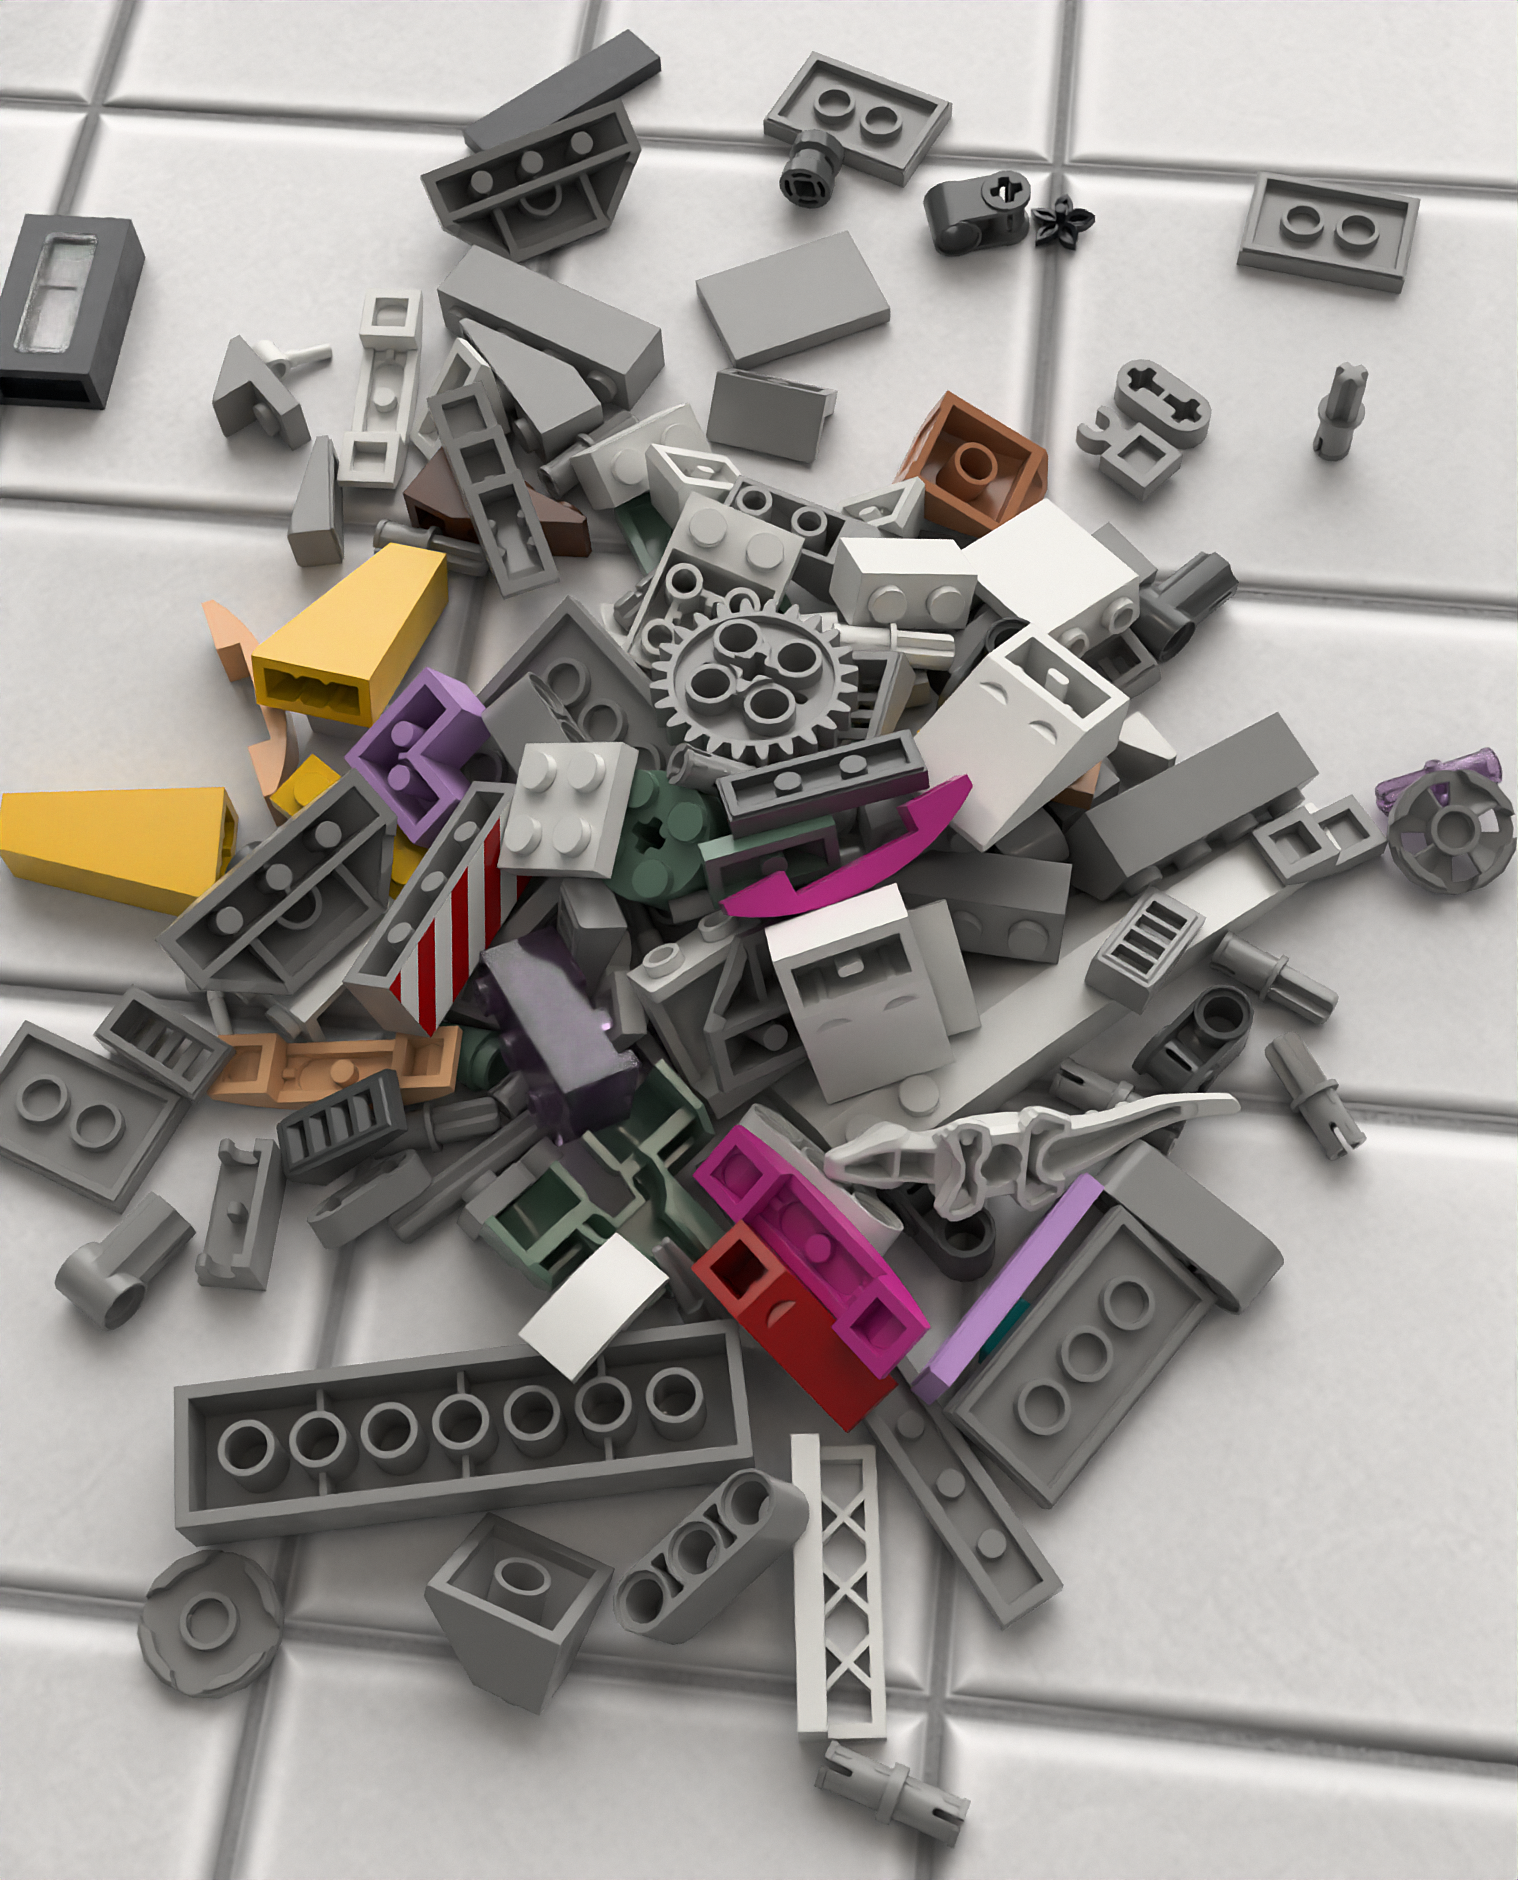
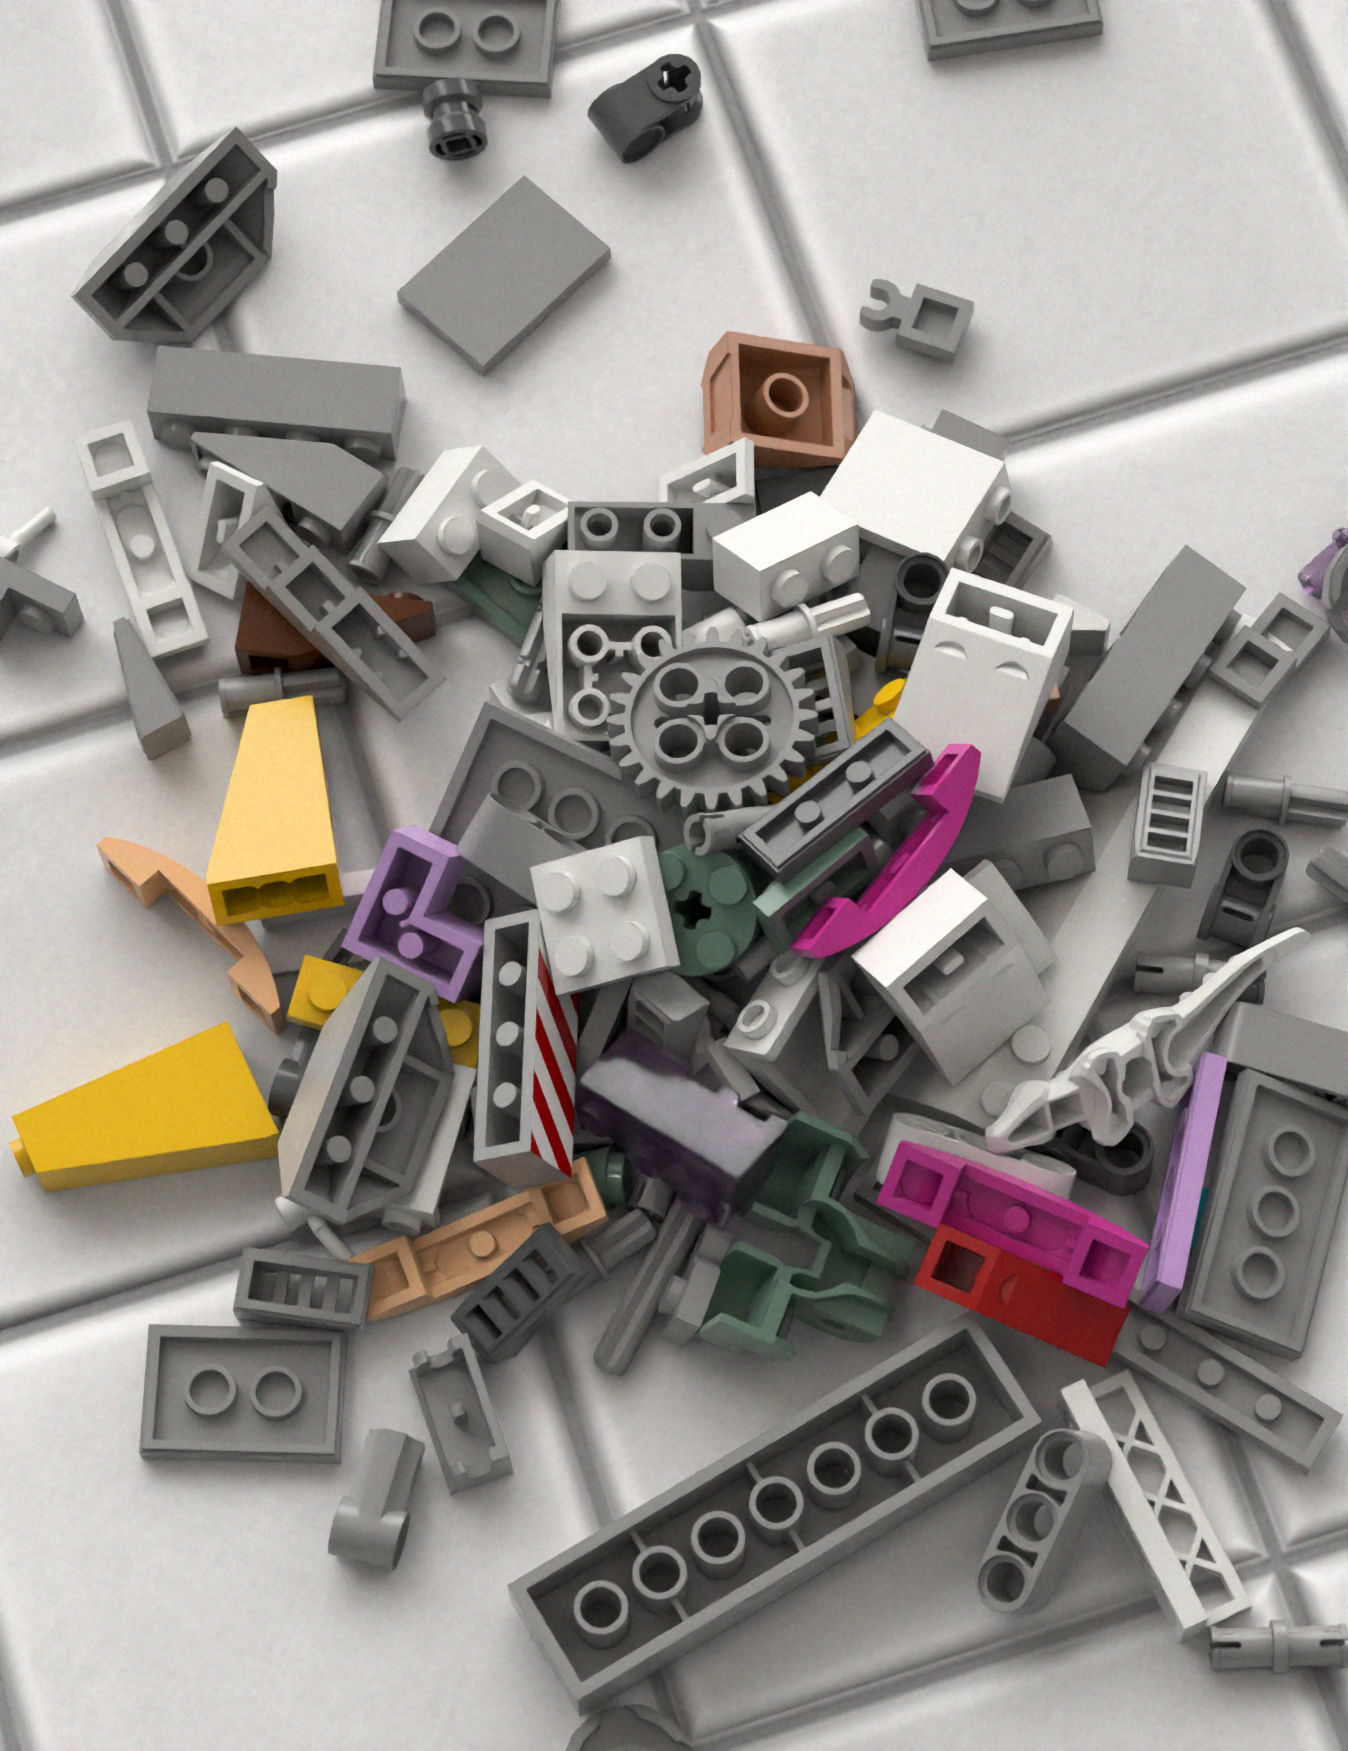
camera: 25 degrees left, 5 degrees up
(369, 1199) = (573, 1349): light grey beam -> none
(516, 1609) = (895, 1639): light grey slope -> none
(578, 87) = (143, 131): tile -> none
(593, 1307) = (846, 1354): white slope -> none
(694, 1299) = (911, 1304): light grey piece -> none
(768, 414) = (546, 411): light grey panel -> none
(1063, 223) = (734, 82): black plant -> none
(1159, 406) = (926, 250): light grey beam -> none
(1182, 602) = (1042, 458): dark grey piece -> none
(1341, 412) = (1109, 203): light grey axle -> none

